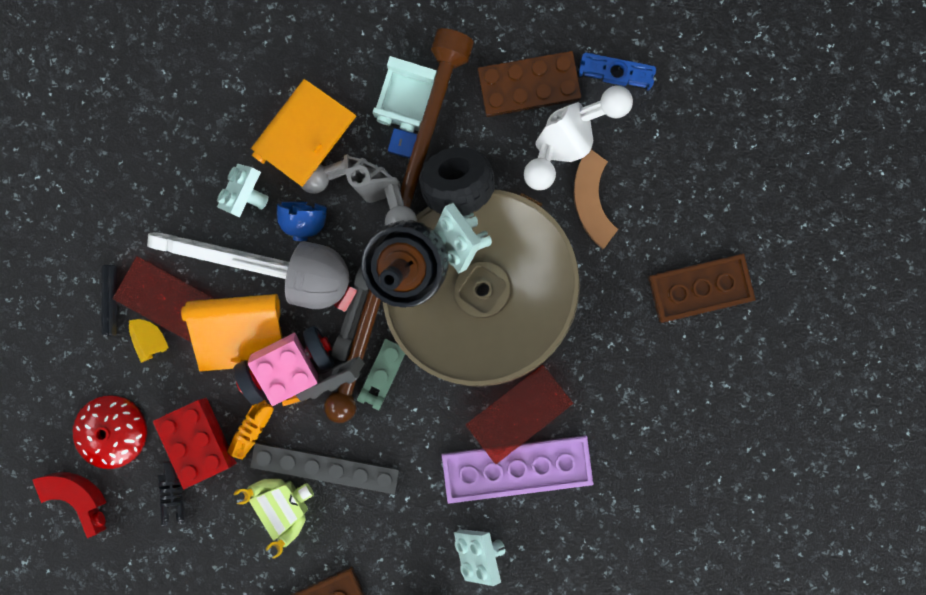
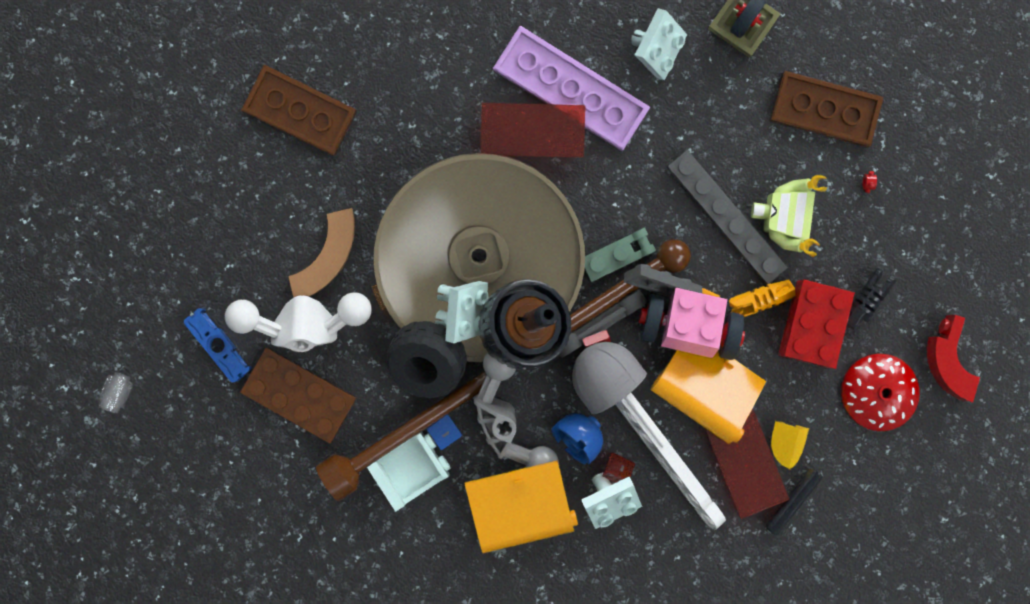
camera: 145 degrees left, 0 degrees up
(240, 581) = (869, 182): none -> red piece
(254, 219) = (618, 468): none -> clear red tile

